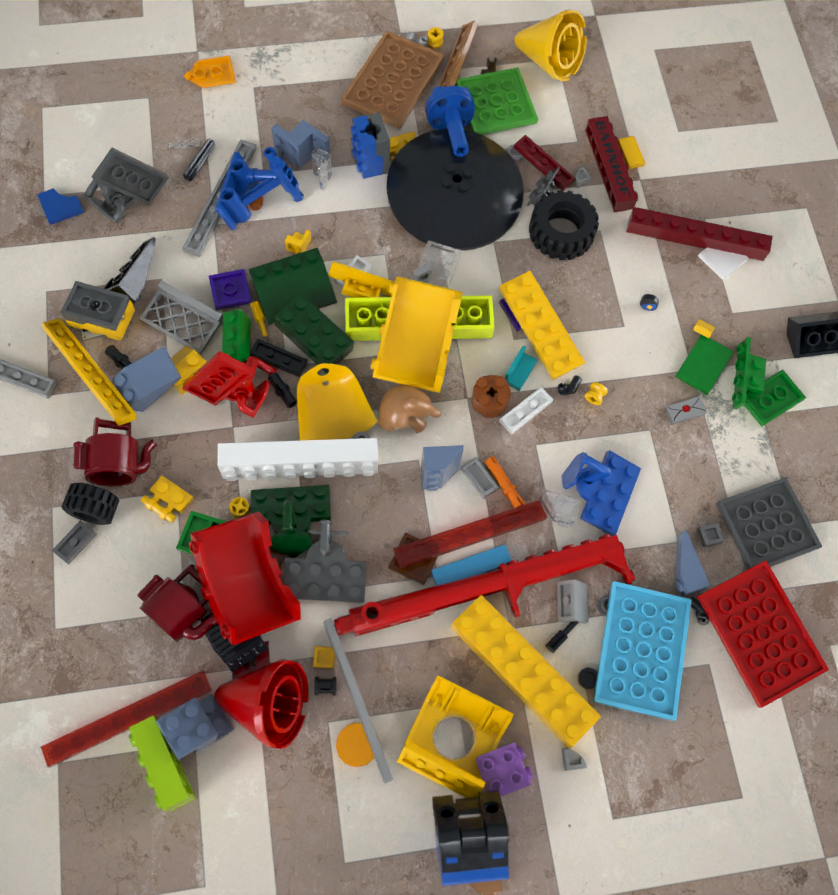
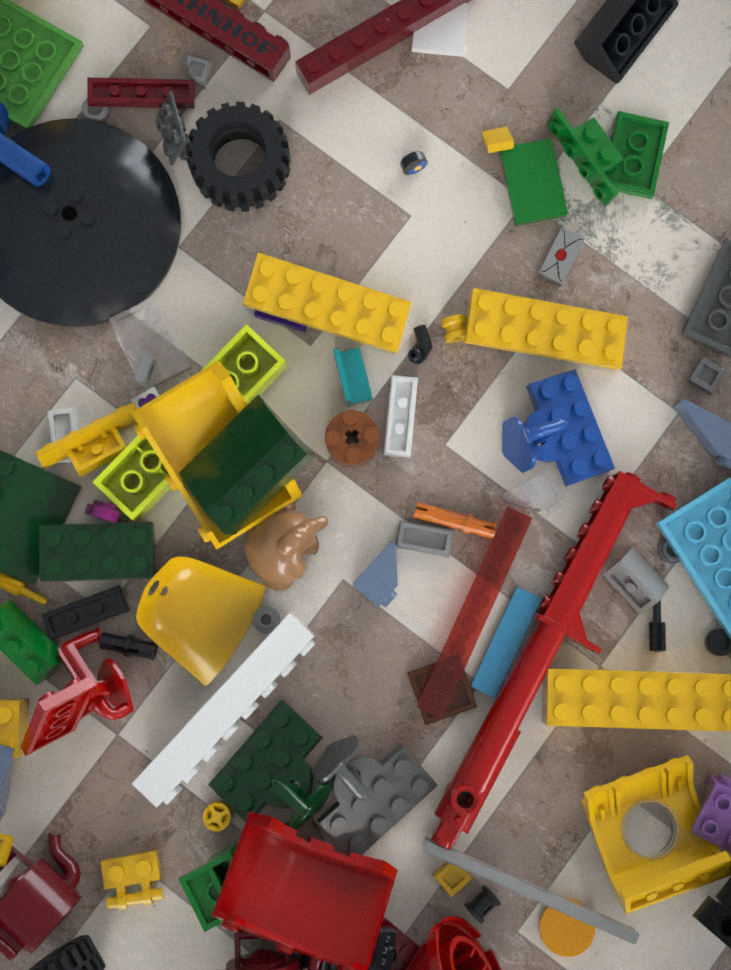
camera: 40 degrees left, 15 degrees up
(336, 316) = (102, 510): none -> magenta plate
(426, 350) = (245, 466): none -> dark green slope
(644, 435) = (545, 329): none -> yellow plate

